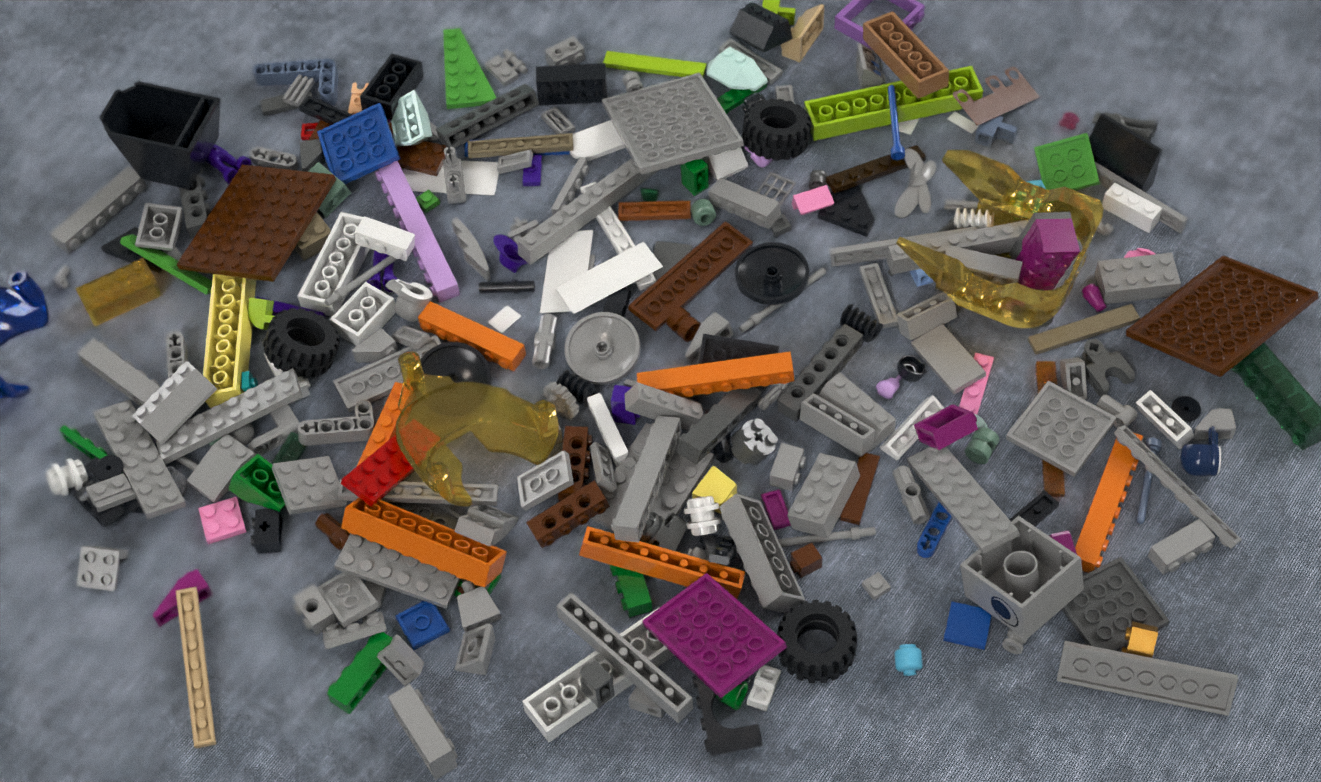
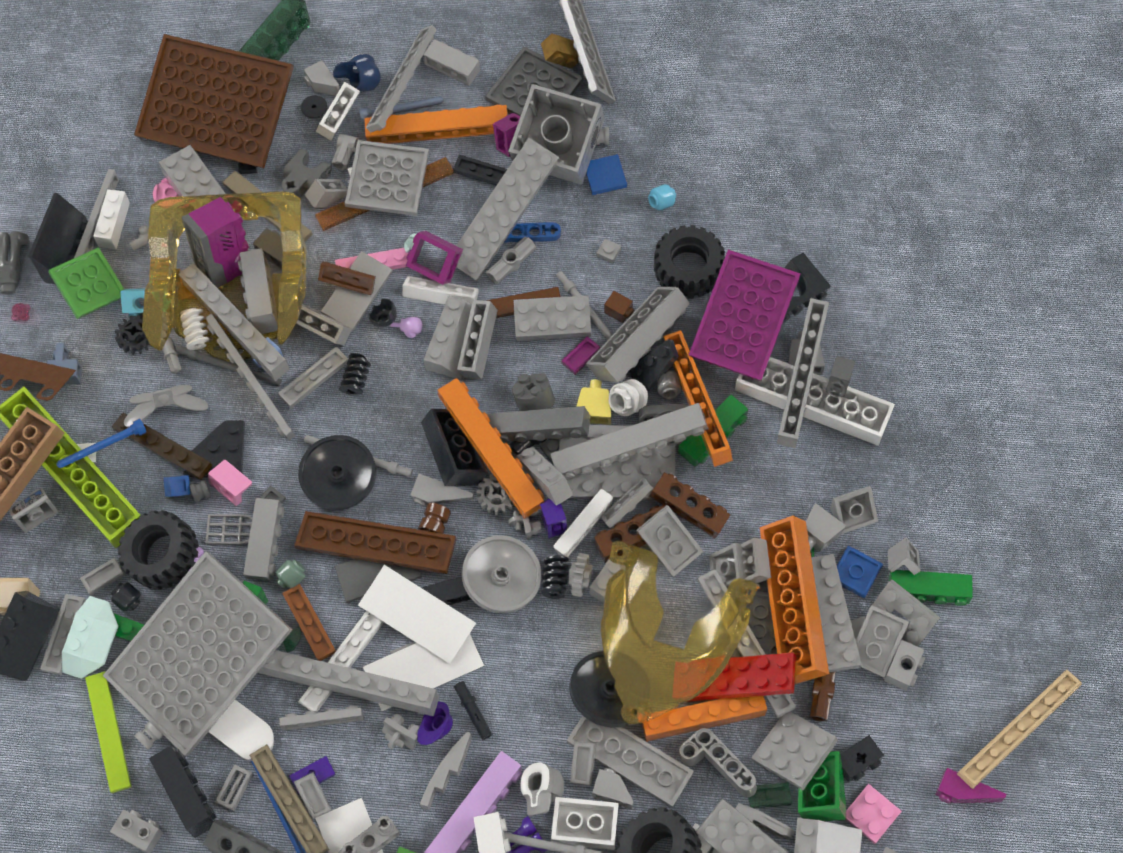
camera: 120 degrees left, 10 degrees up
(424, 731) = (951, 500): light grey brick -> none
(457, 328) = (548, 705): orange brick -> none
(504, 319) = (508, 694): white sticker -> none
(544, 341) = (517, 636): light grey piece -> none
(787, 467) = (538, 361): light grey brick -> none
(829, 361) = (417, 377): dark grey brick -> none
(831, 164) = (176, 486): none -> blue panel
(960, 347) = (346, 278): none -> reddish brown plate
(963, 122) = (59, 403): white sticker -> none
(982, 445) = (437, 227): sand green wheel -> none

